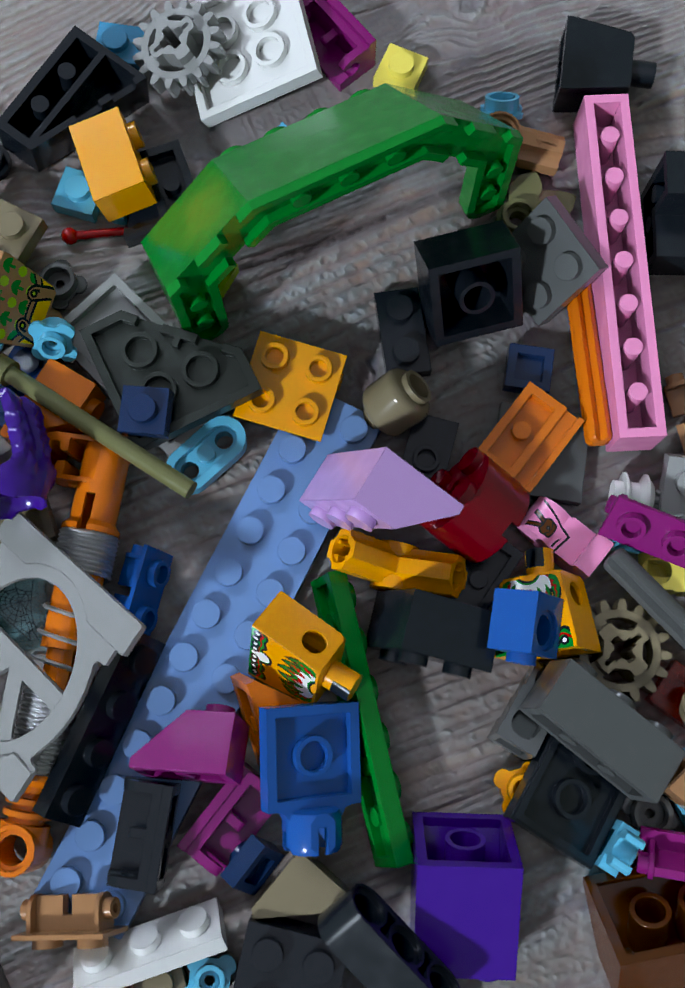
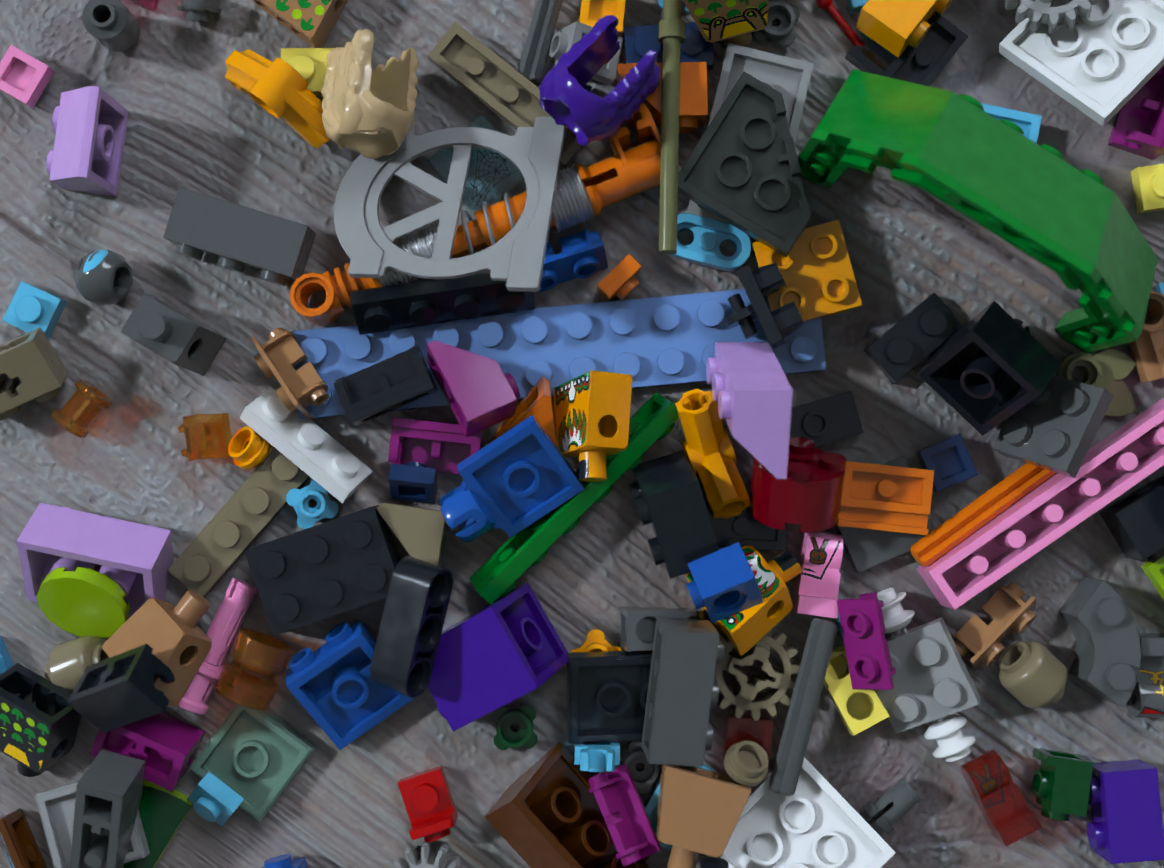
camera: 55 degrees right, 10 degrees up
(54, 330) = (722, 54): medium azure plate -> none
(145, 411) = (709, 173): dark blue plate -> none
(190, 550) = (620, 280): none -> orange plate
(272, 431) = (758, 285): none -> black hips
(396, 401) = (848, 370): dark tan head -> none
(559, 910) = (506, 736): none -> dark green plate

